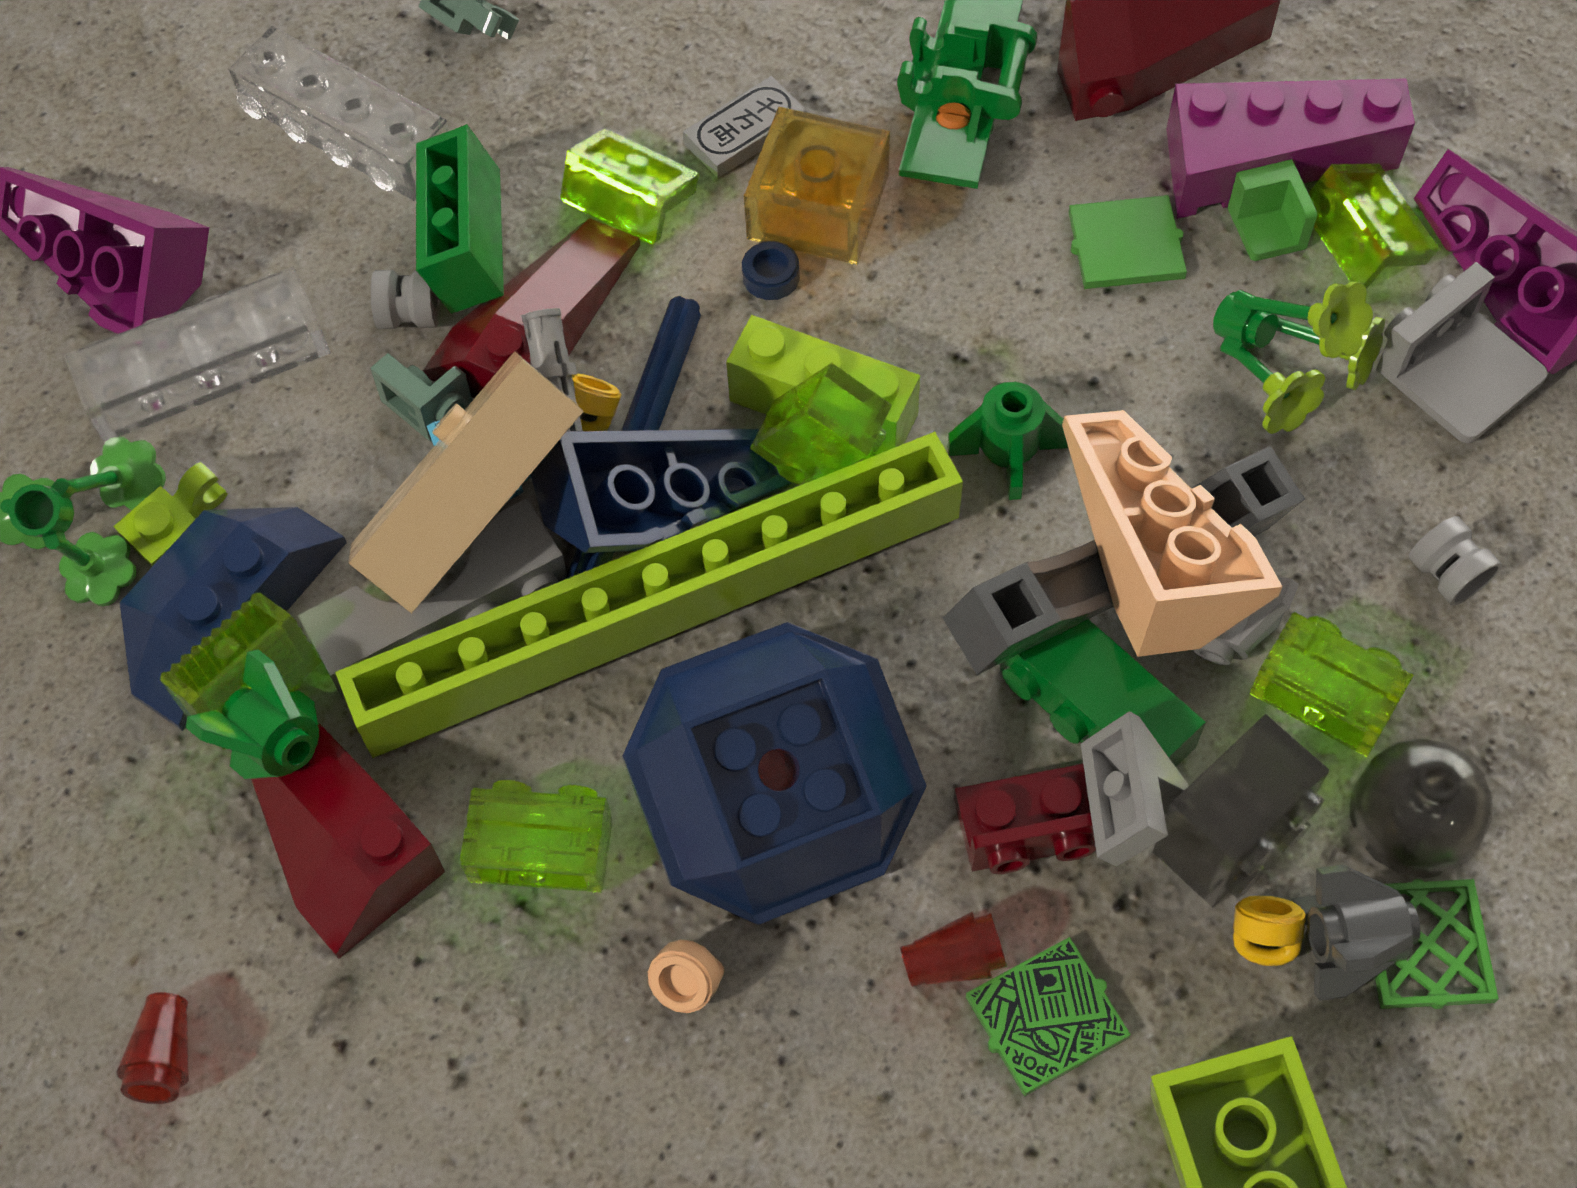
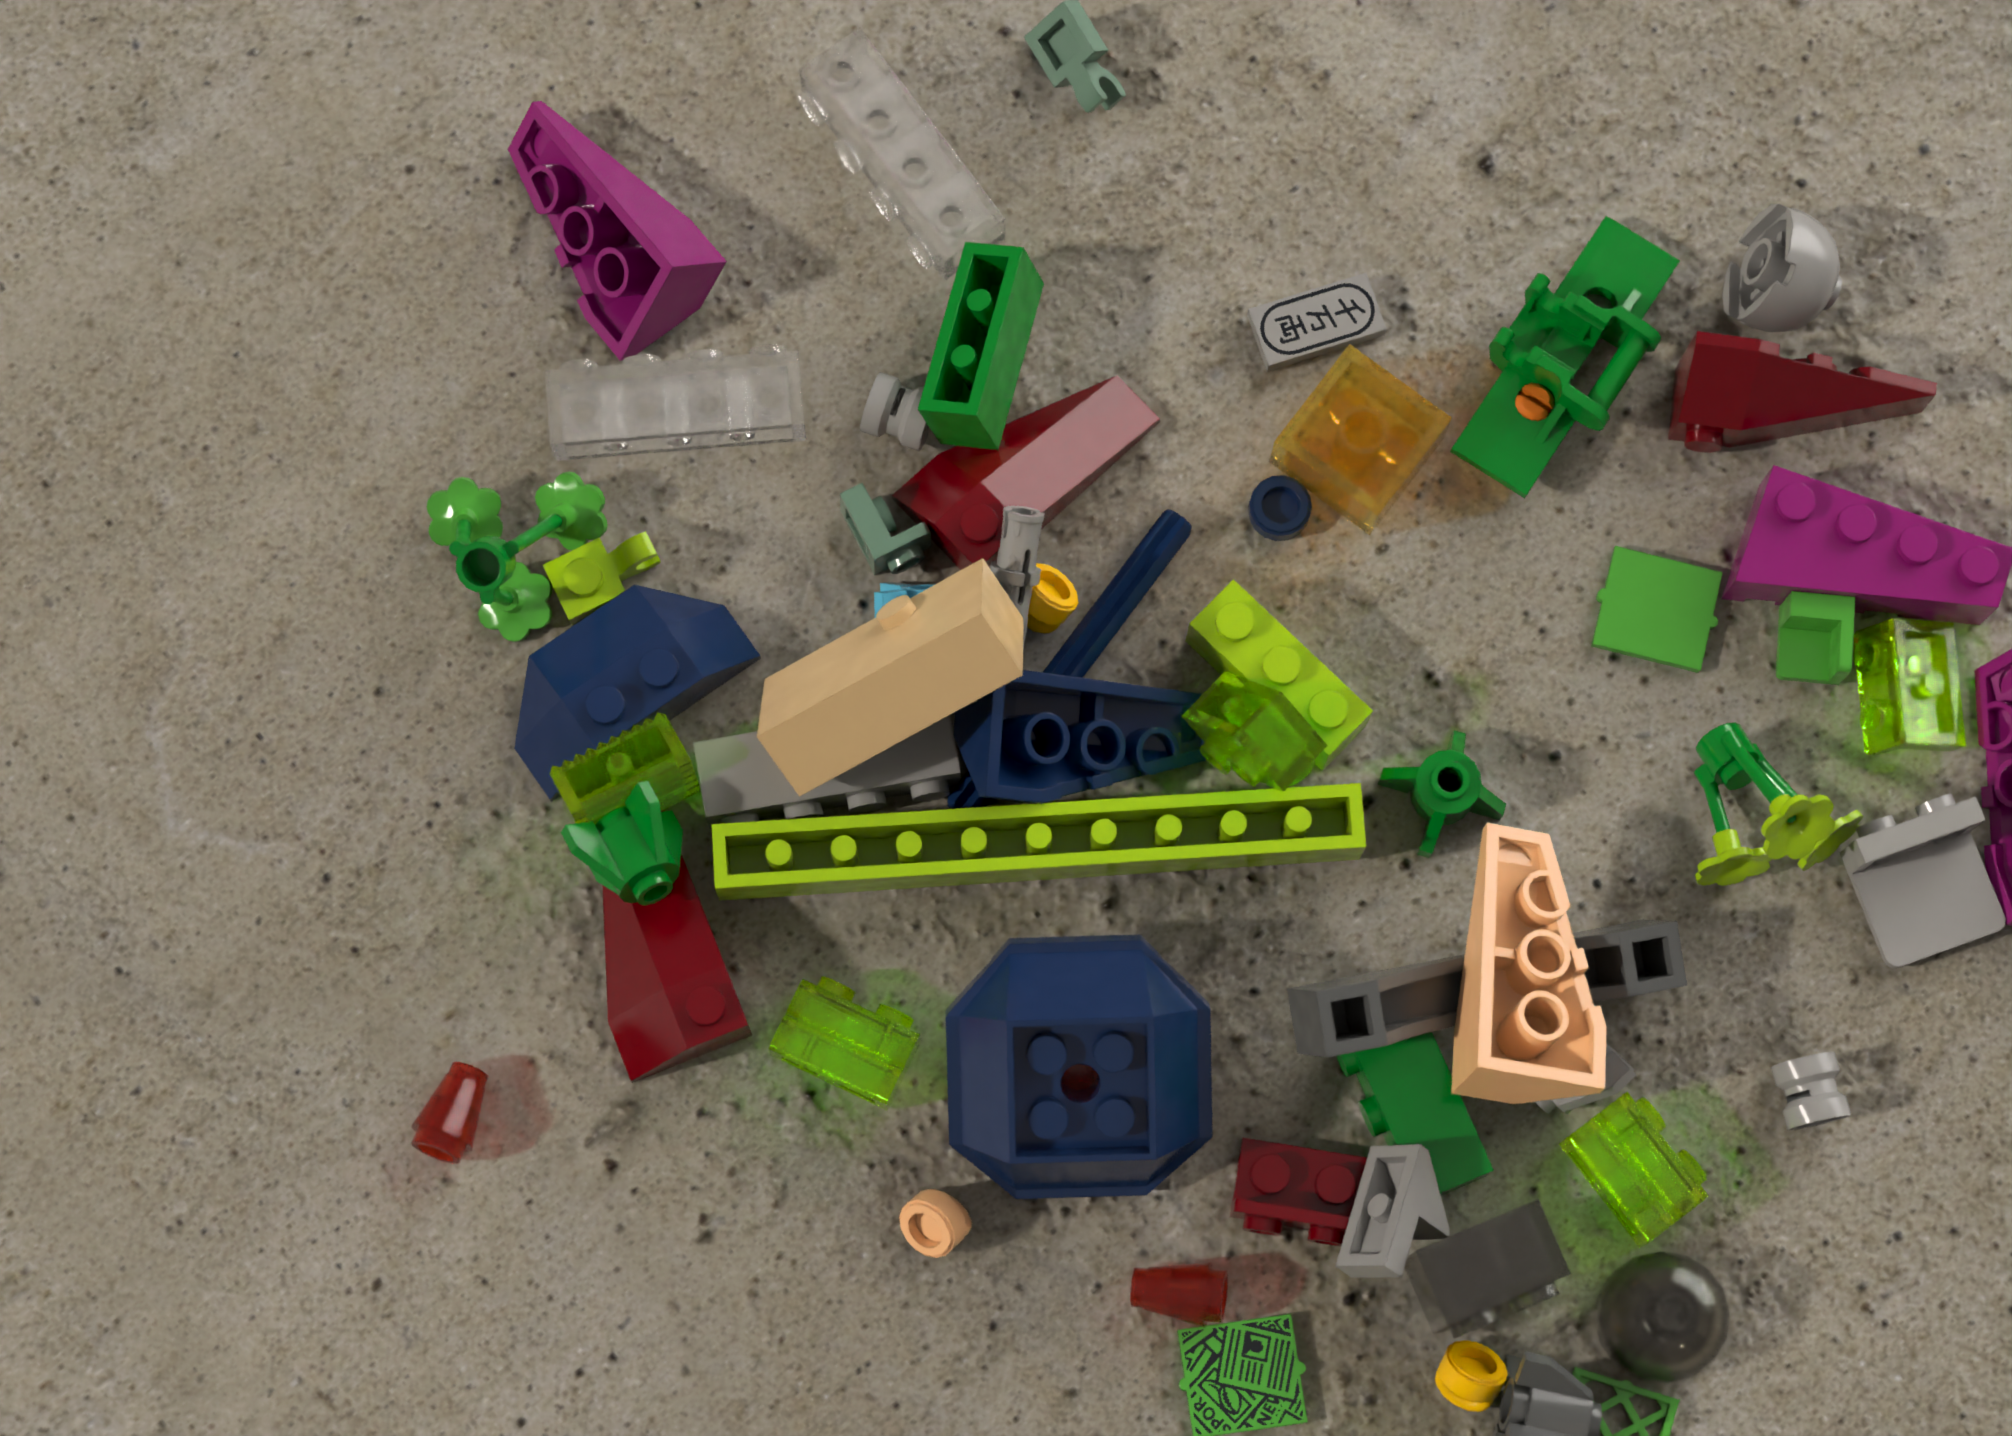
camera: 15 degrees right, 15 degrees up
(625, 184) = (1168, 351): clear neon green bracket -> none

